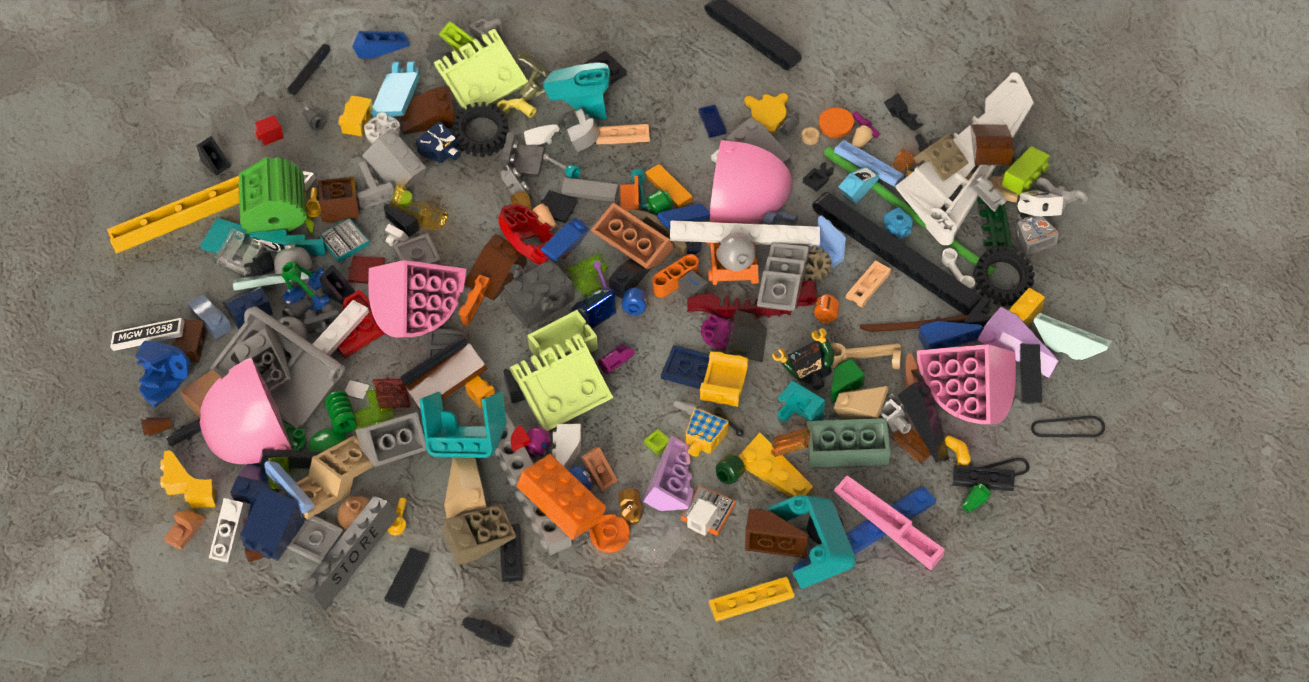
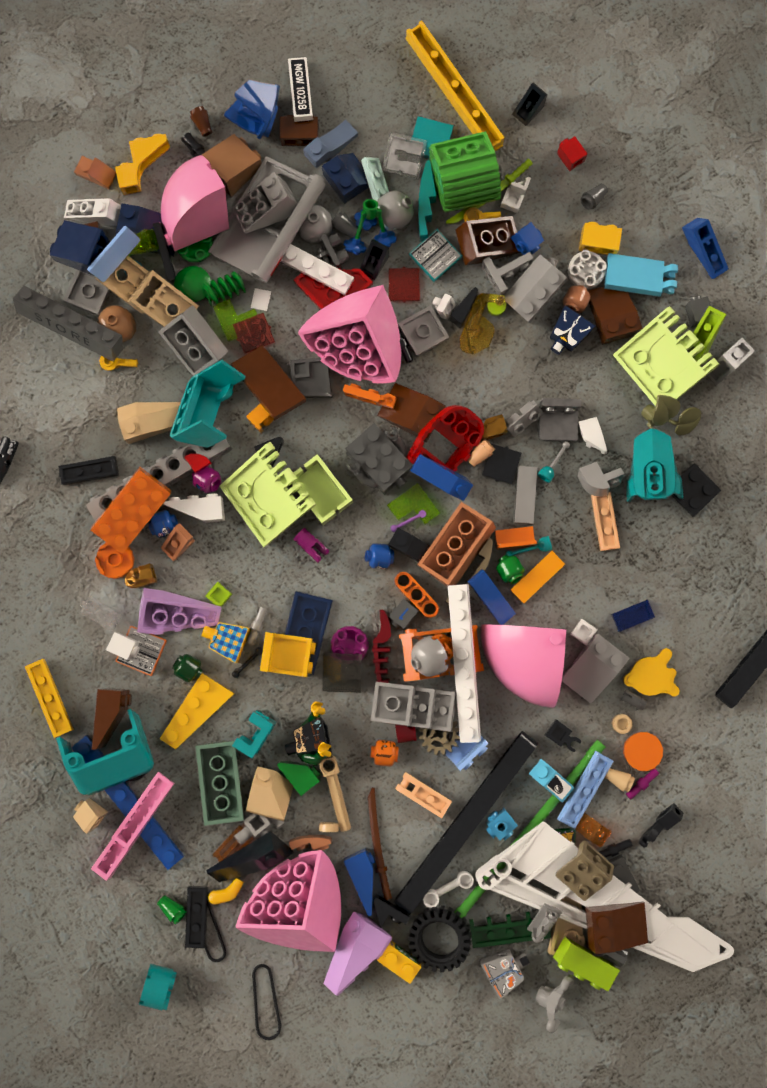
camera: 85 degrees right, 30 degrees up
(261, 265) = (392, 179): black plate -> none
(309, 68) = (664, 179): black axle -> none
(344, 166) = (528, 239): none -> blue brick
(407, 577) = (56, 380): black tile -> none
(409, 135) = (577, 298): none -> nougat head
(433, 361) = (288, 368): black axle -> none
(477, 533) = (100, 438): dark tan slope -> none
(481, 147) = (582, 350): black tyre -> none
(518, 104) = (634, 406): light yellow piece -> none
(597, 306) = (366, 516): clear blue slope -> none
(772, 218) = (498, 688): sand blue plate -> none
(789, 441) = (213, 712): clear orange tile -> none
(877, 560) = (89, 815): none -> tan slope
(1030, 373) = (317, 966): black tile -> none
(1032, 203) = (535, 979): white torso -> none
(1052, 508) = (156, 986): none -> teal brick
(1069, 339) = (366, 1011): light aqua wedge -> none

